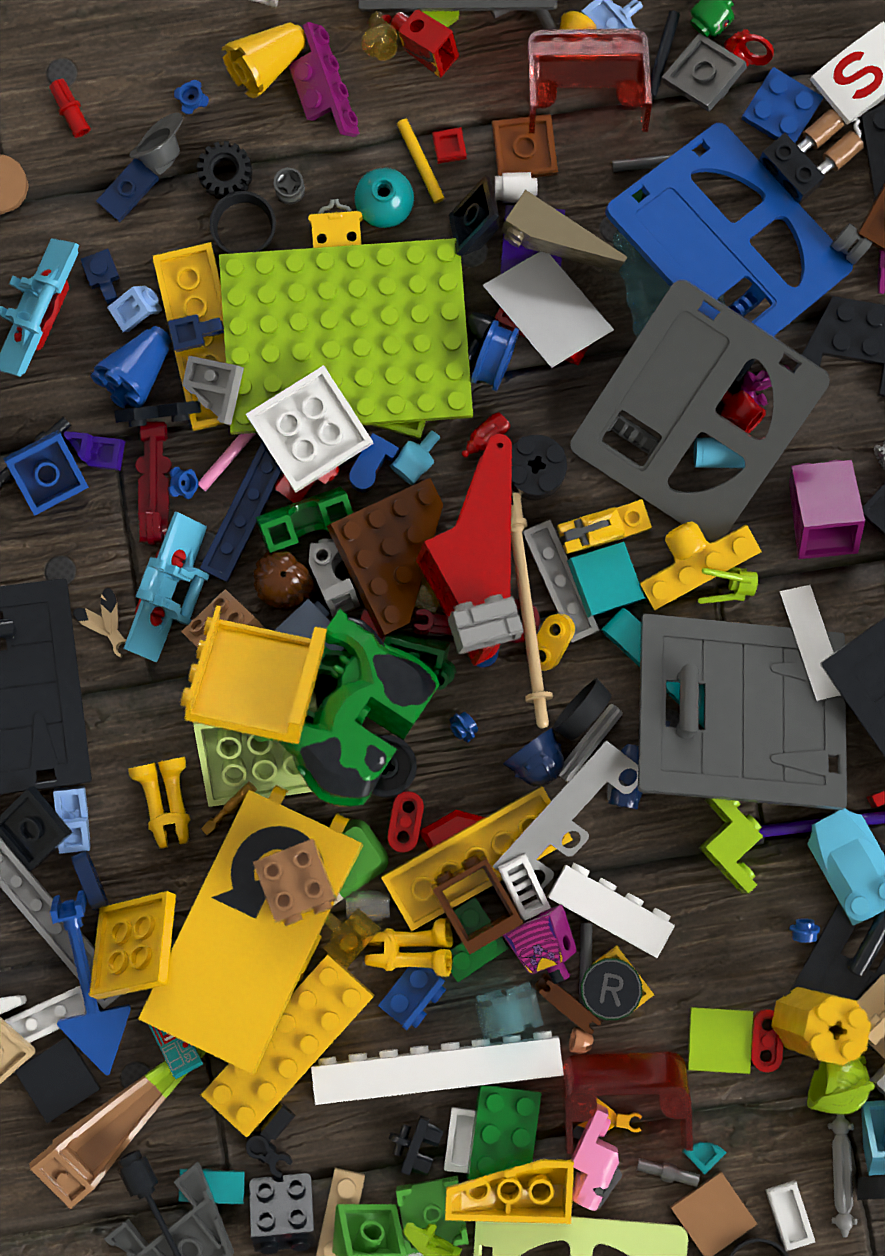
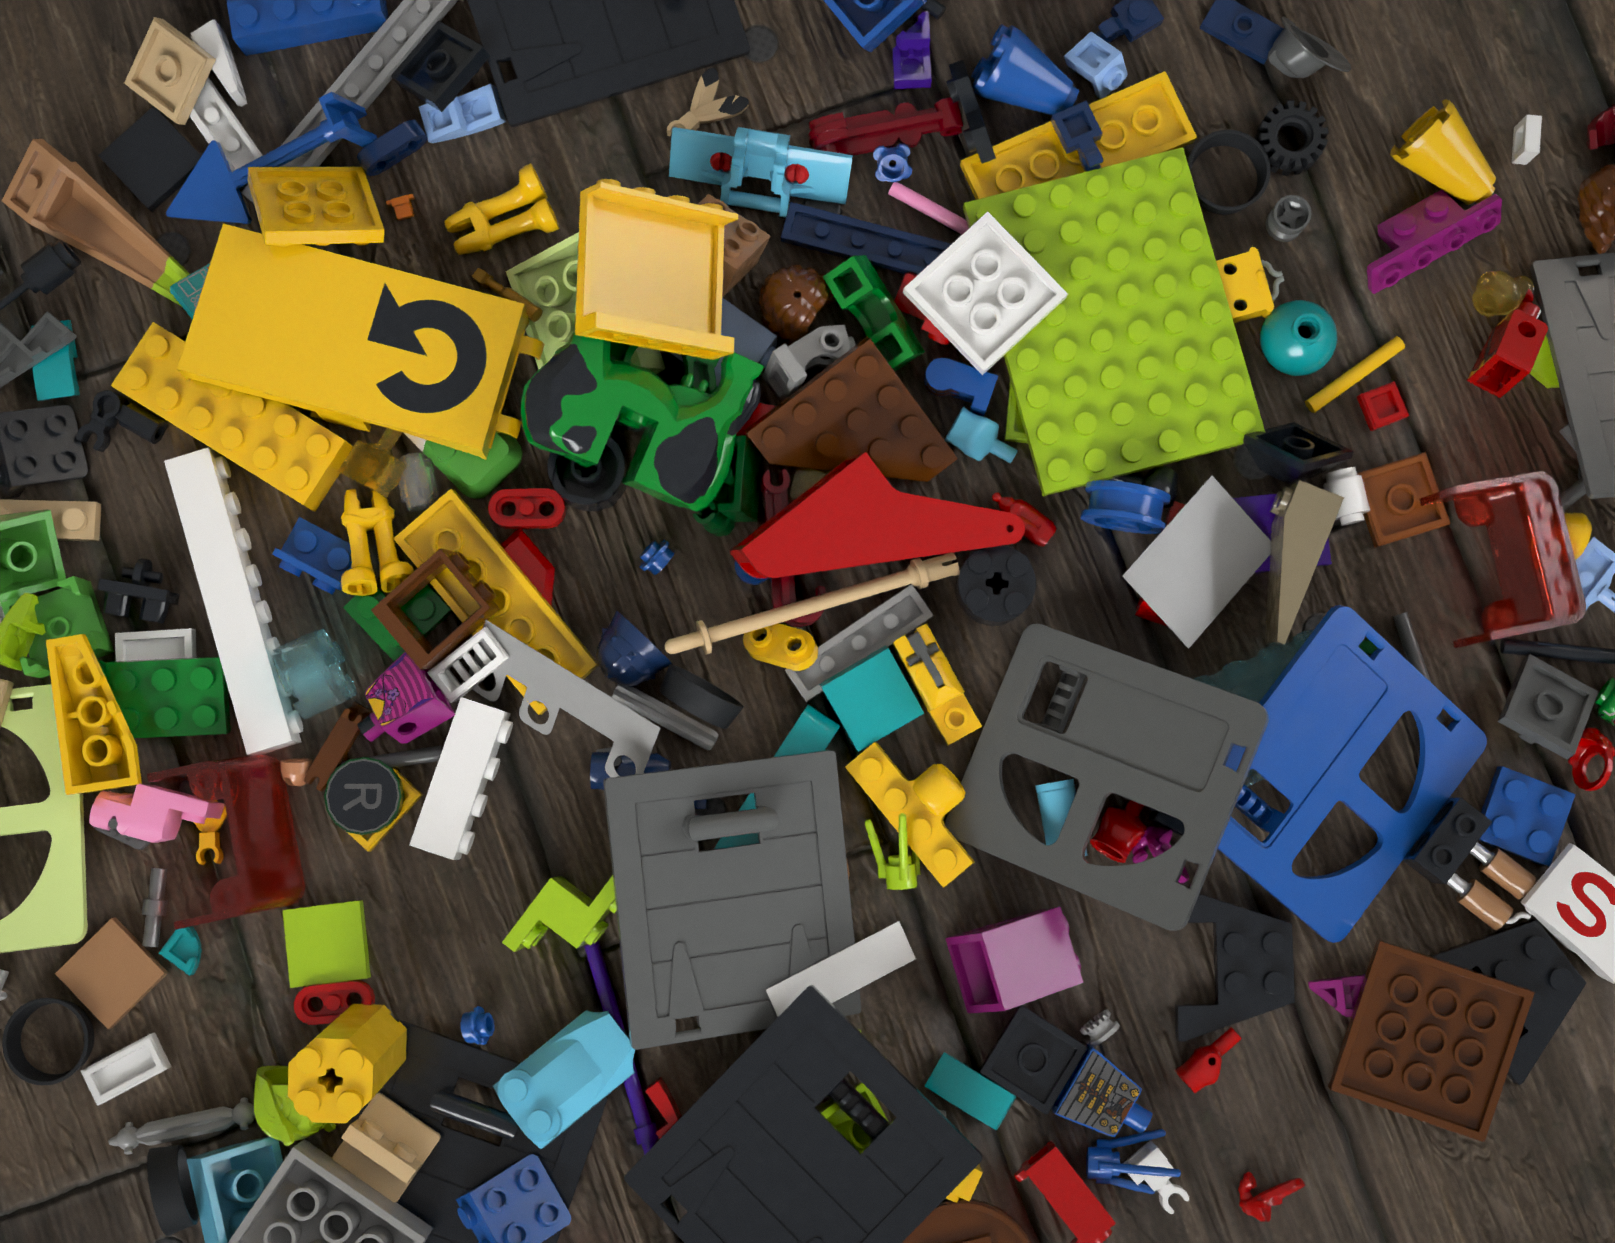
camera: 85 degrees right, 0 degrees up
(138, 881) = (402, 206): none -> orange piece
(191, 88) = (1375, 70): blue plate -> none
(214, 385) = (1017, 170): light grey wing -> none
(295, 882) = (414, 375): medium nougat brick -> none
(485, 623) = (772, 542): light grey brick -> none
(846, 239) = (1367, 926): dark grey wheel -> none

